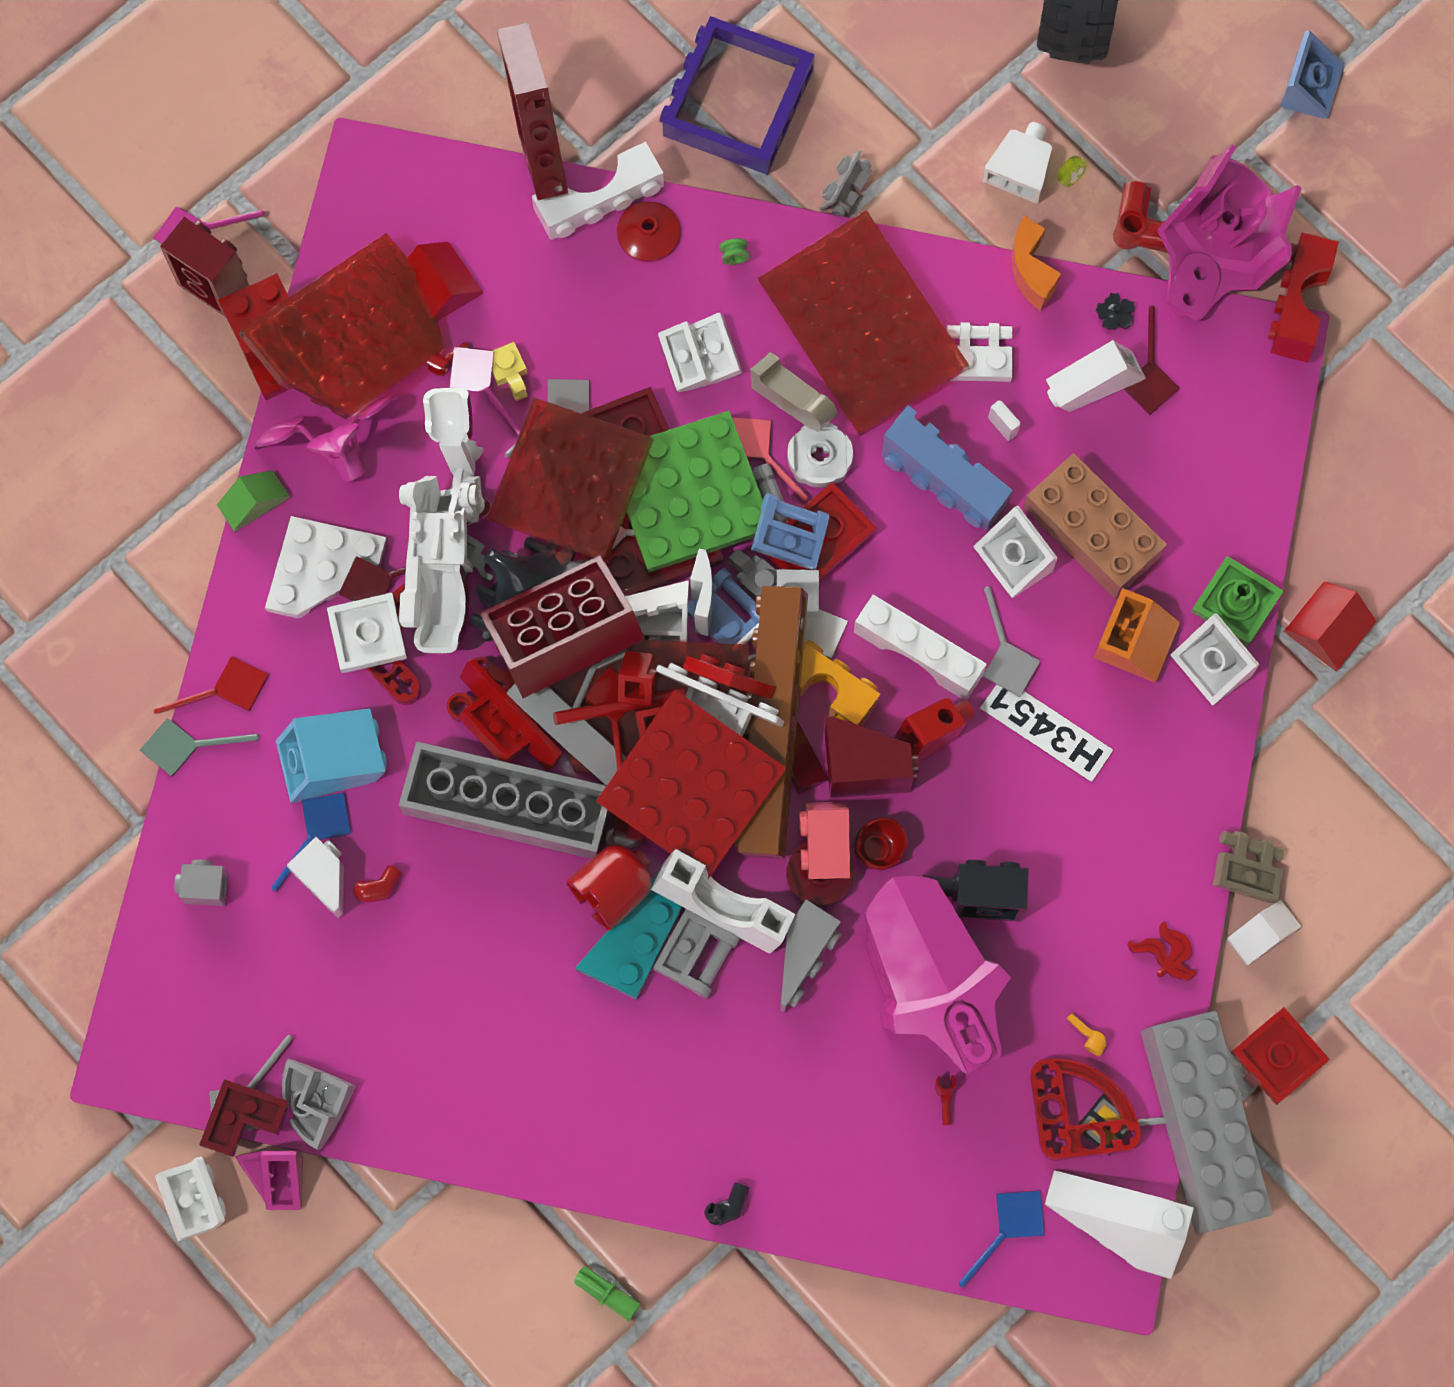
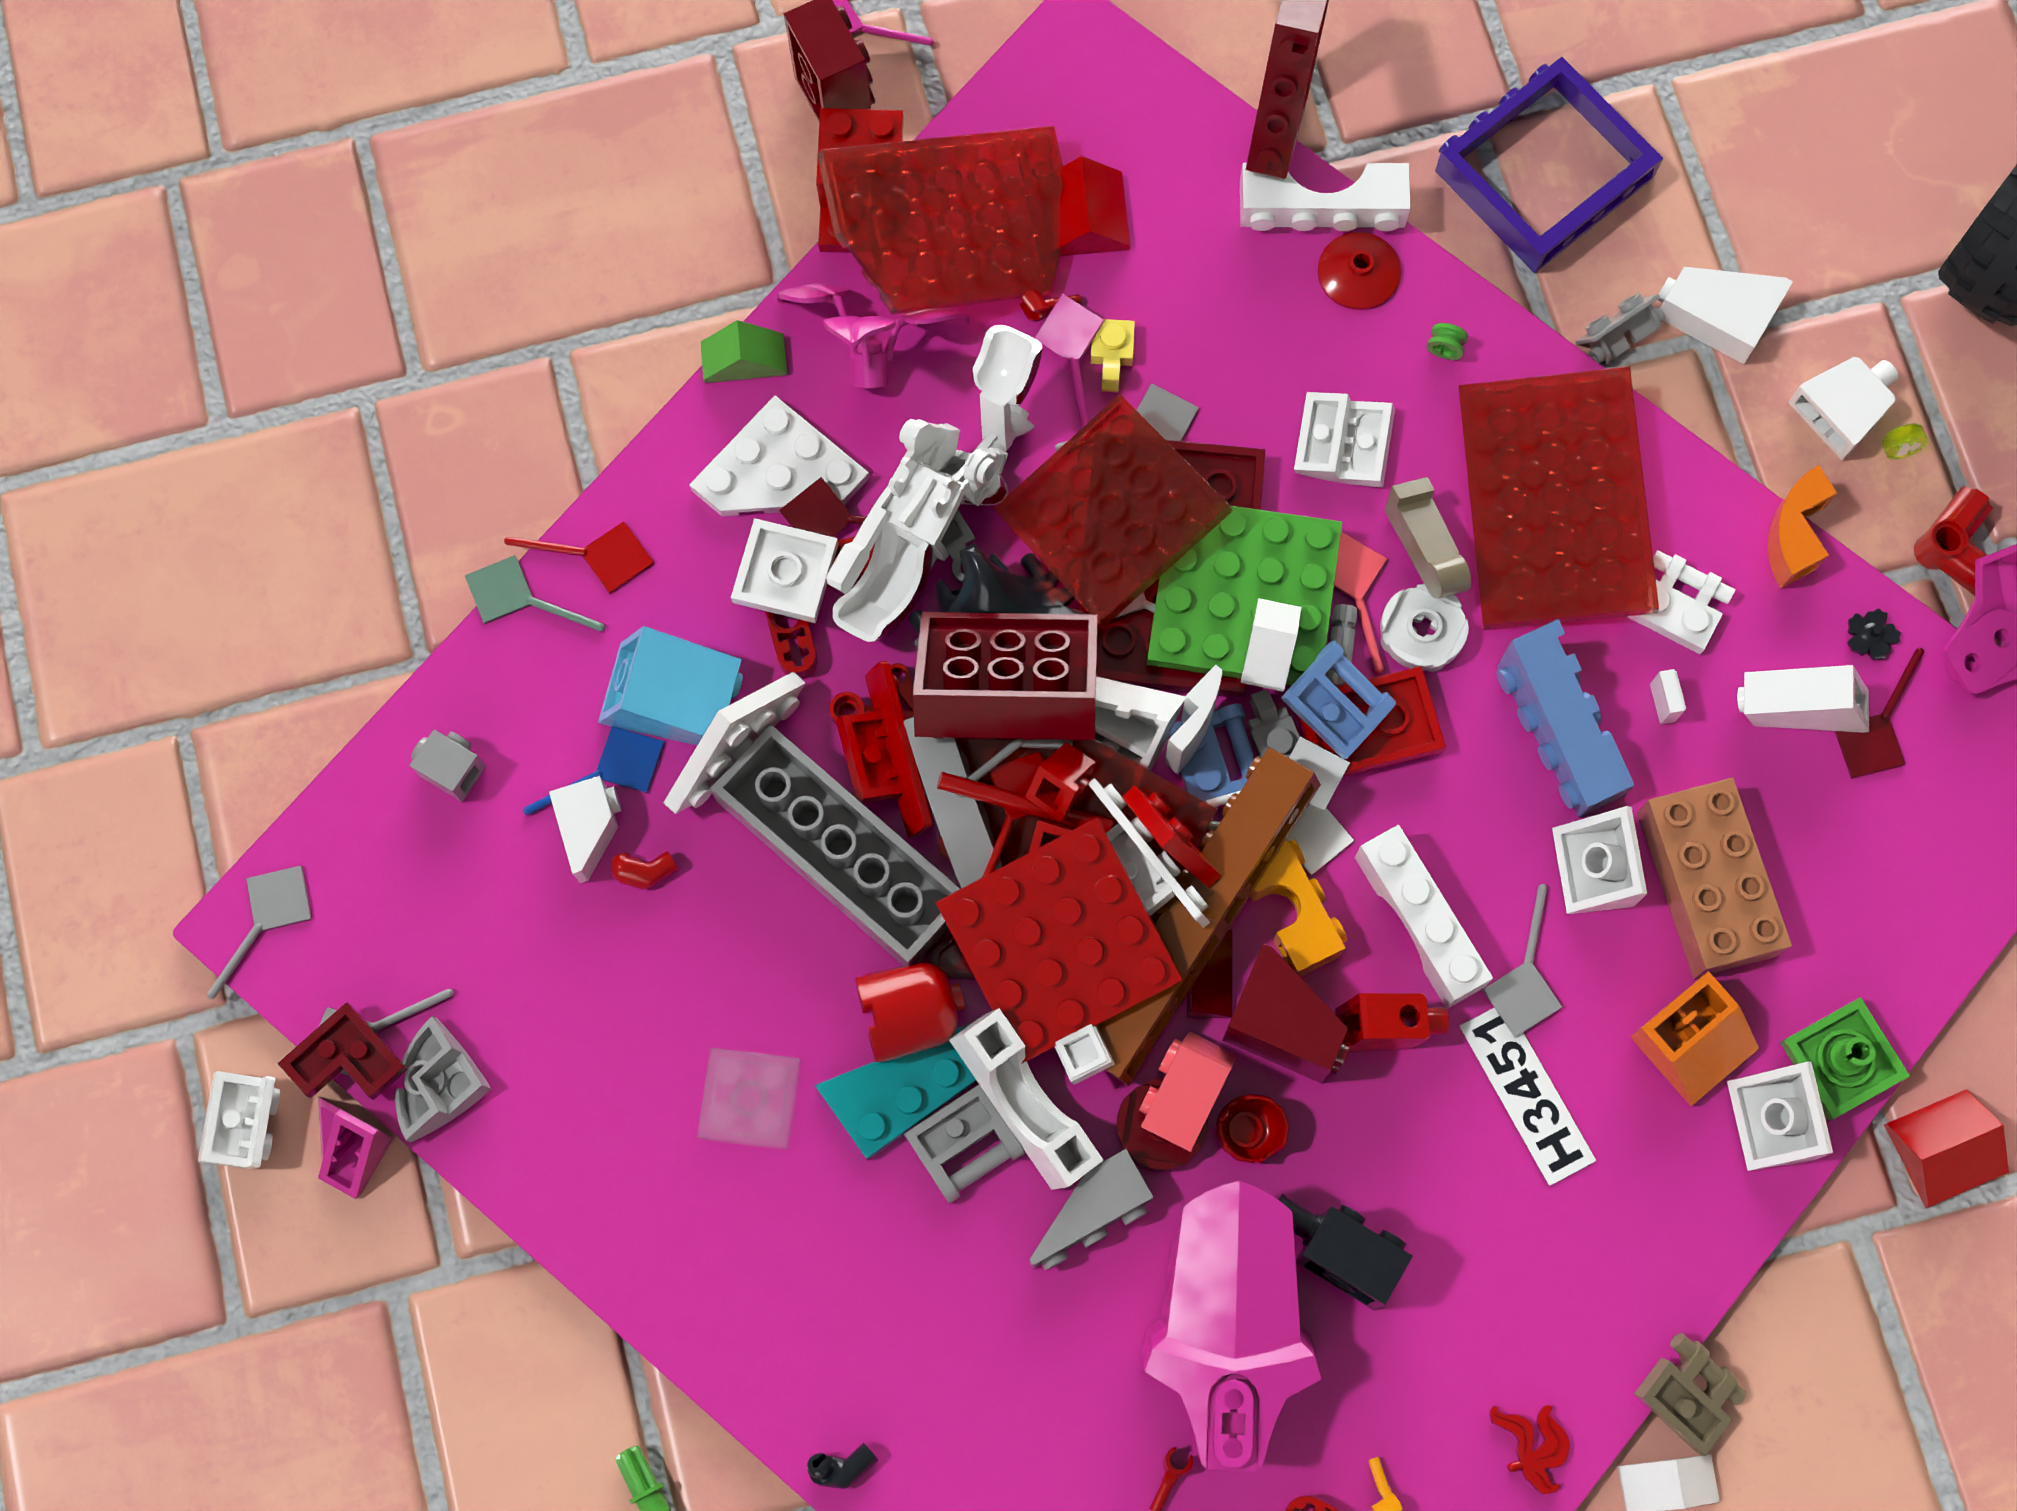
camera: 30 degrees right, 0 degrees up
(132, 1040) = (275, 902): none -> light grey piece
(394, 766) = (730, 736): none -> white plate
(534, 1000) = (749, 1098): none -> clear plate
(726, 517) = (1271, 645): none -> white slope
(746, 851) = (1084, 1053): none -> white tile
(906, 138) = (1723, 307): none -> white slope

